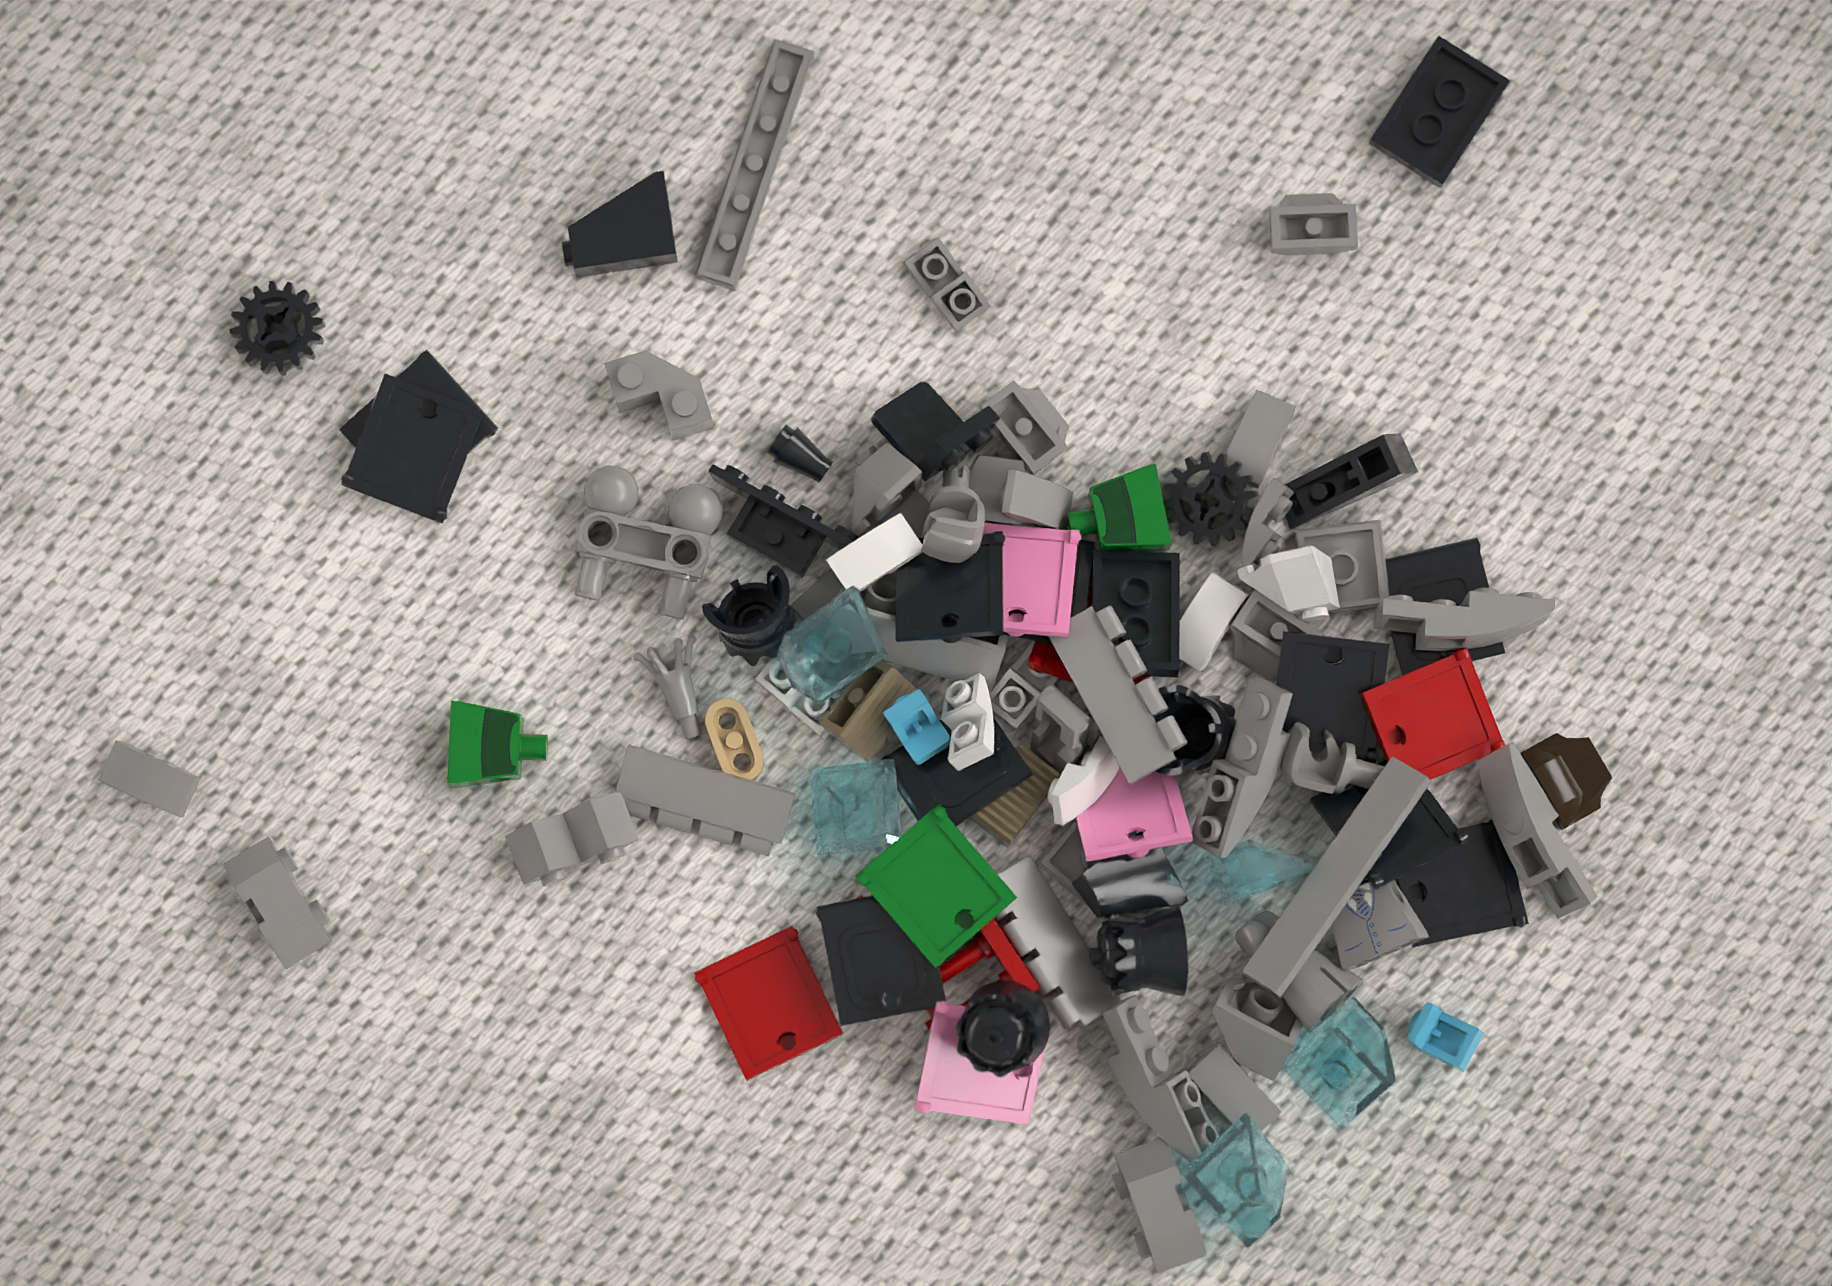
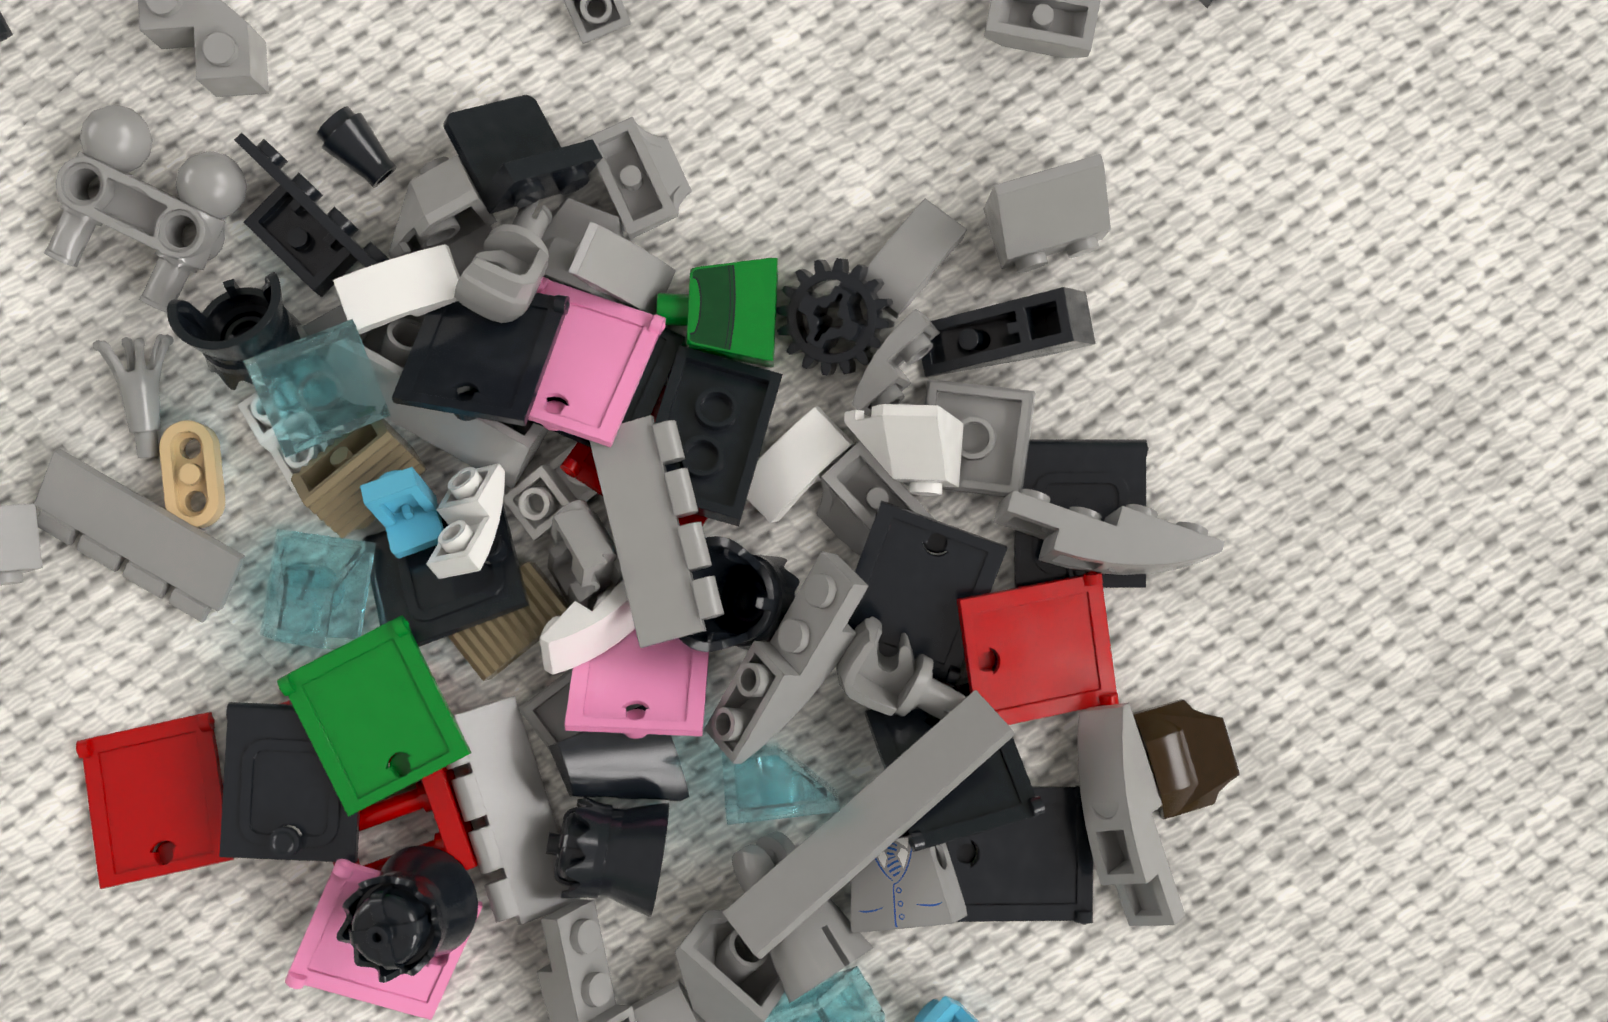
camera: 15 degrees right, 5 degrees up
(1357, 381) = (1049, 214): none -> light grey slope

